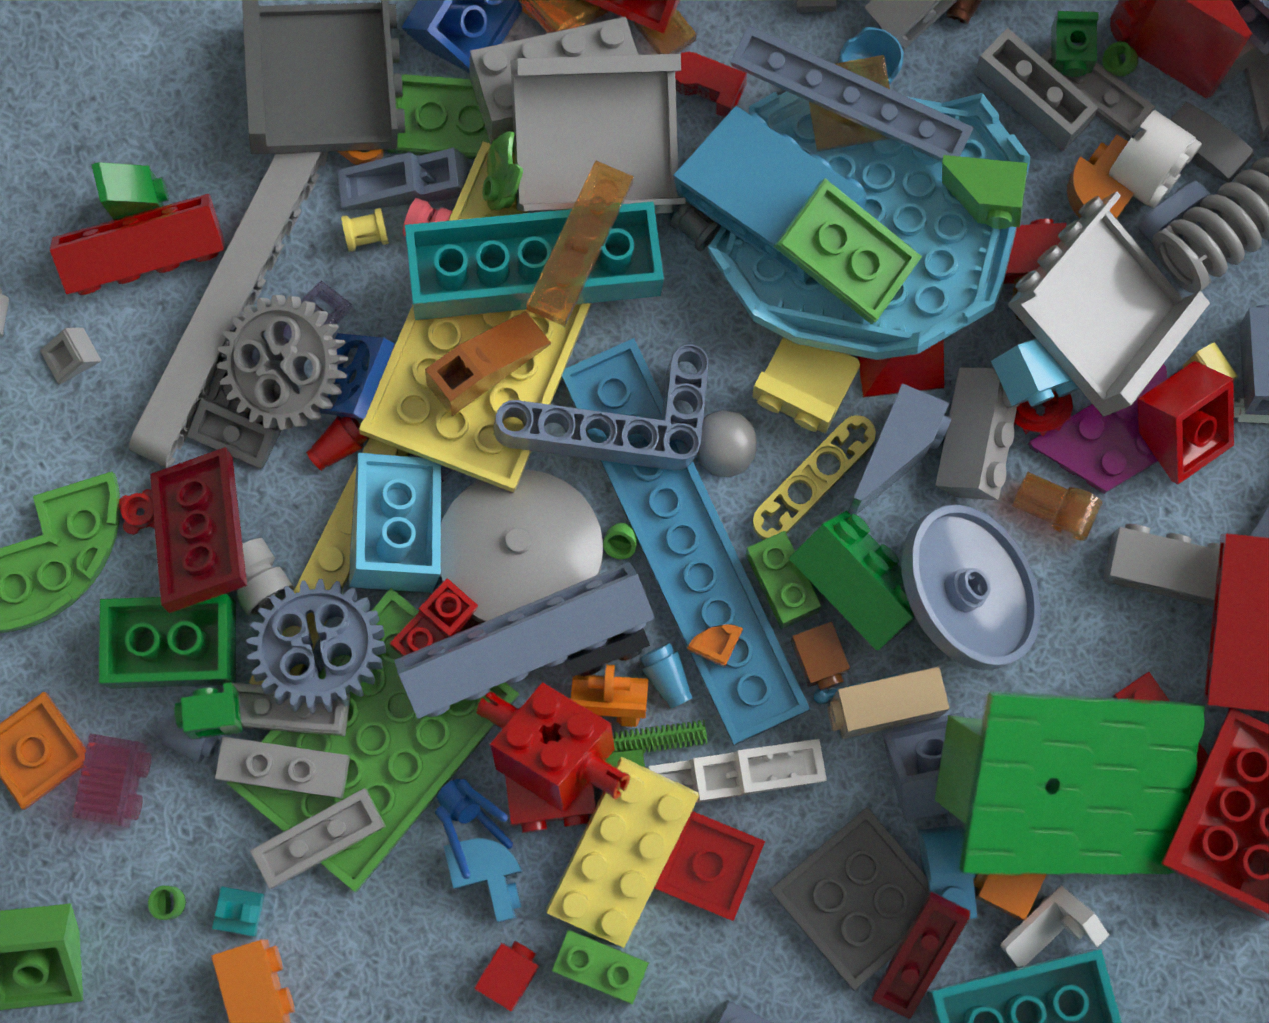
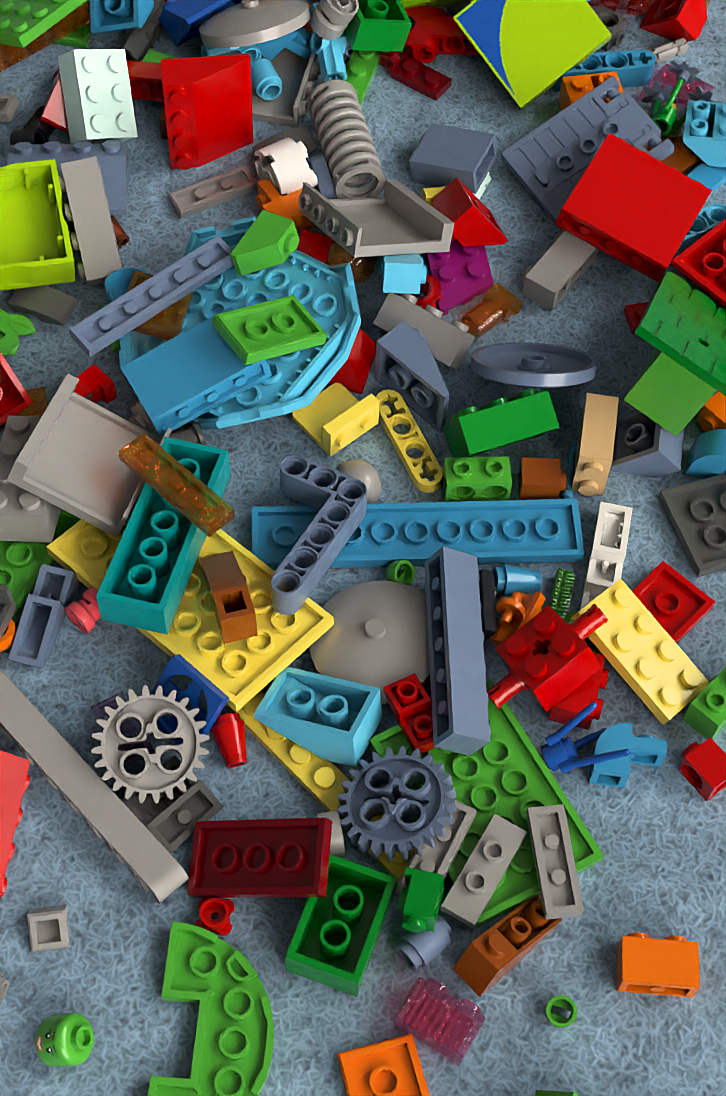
camera: 75 degrees left, 20 degrees down
(212, 818) = (504, 945): none -> dark orange slope
(238, 911) = (586, 958): teal tile -> none
(364, 230) = (68, 657): light yellow bush -> none
(503, 175) = (83, 529): bright green plate -> none
(716, 643) = (507, 535): orange tile -> none
(1035, 89) = (200, 209): light grey brick -> none
(1072, 28) = (181, 182): green brick -> none
(1113, 62) = (205, 163): bright green hinge -> none

